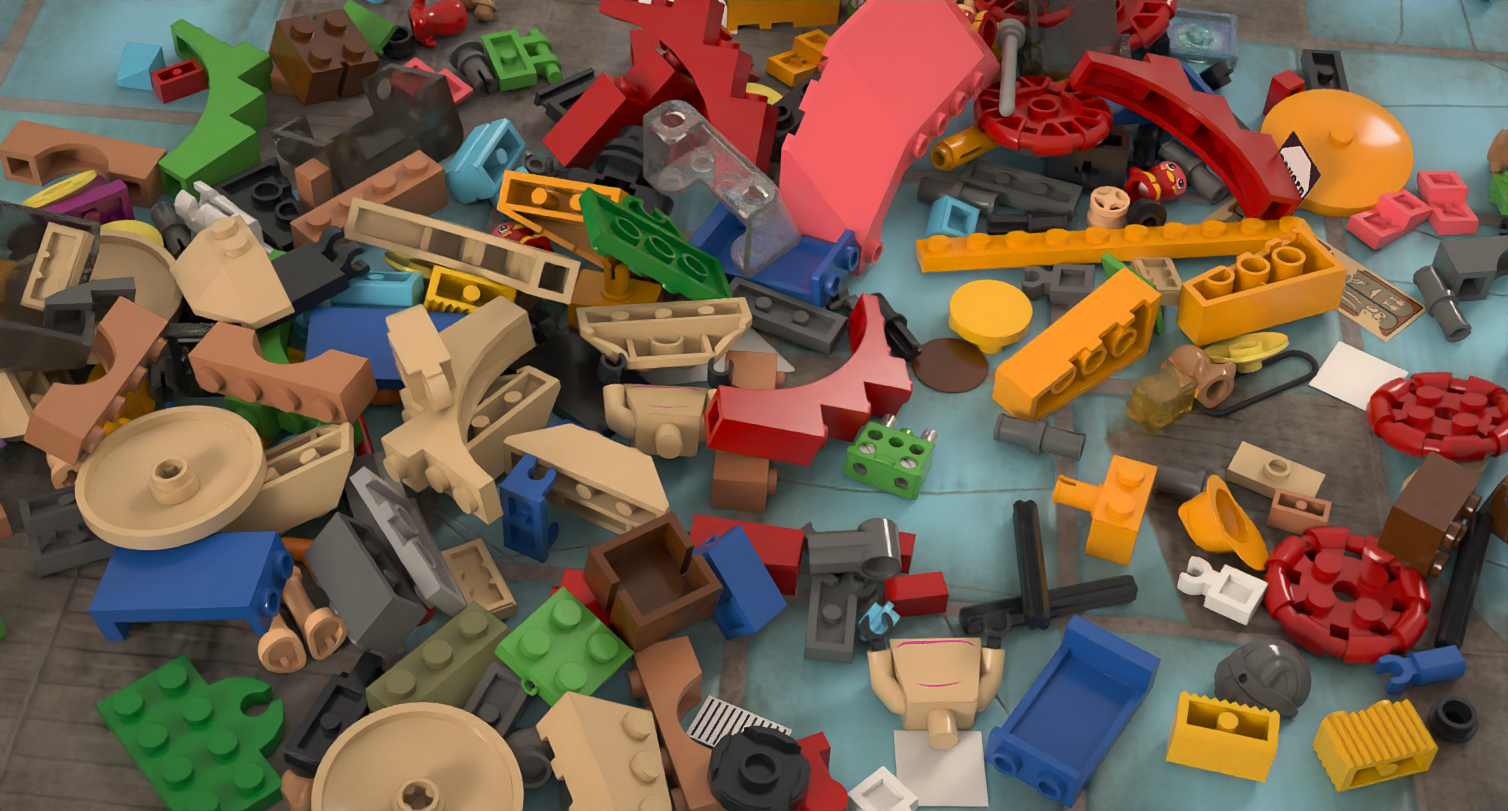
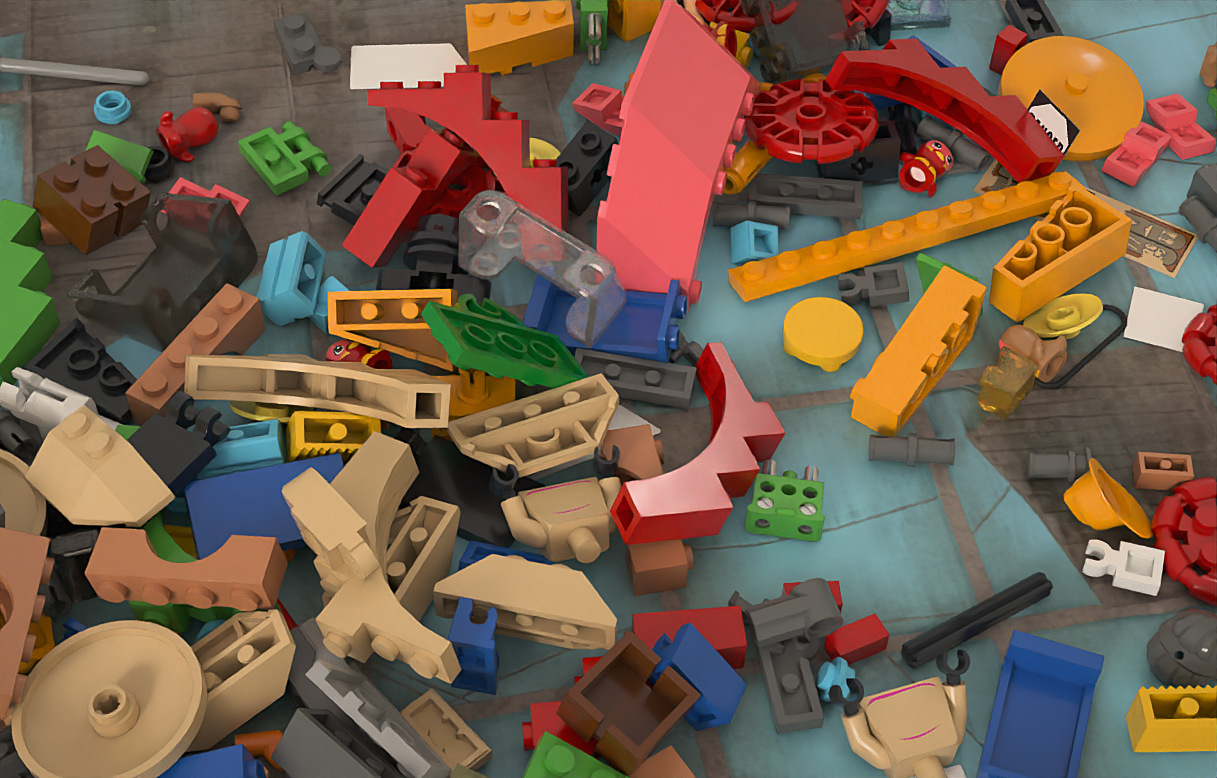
camera: 15 degrees left, 5 degrees up
(313, 184) = (131, 344): nougat piece -> none
(471, 62) = (238, 172): dark grey pin -> none
(538, 166) = (364, 279): dark grey piece -> none
(801, 61) = (556, 99): light orange slope -> none
(897, 331) = (751, 376): black axle -> none
(950, 365) = (801, 392): reddish brown sticker -> none
(1009, 38) = (750, 44): light grey piece -> none
(1028, 222) = (822, 230): black axle -> none
(1031, 565) = (953, 586): black axle -> none
(1108, 208) = (891, 199): light nougat wheel -> none
(1115, 507) = (1007, 506): light orange brick -> none
(1146, 208) = (927, 197): black plate -> none
(1163, 274) = (962, 257): tan plate -> none
(1217, 75) = (940, 39): black plate -> none
(1265, 471) = (1125, 436): tan plate -> none

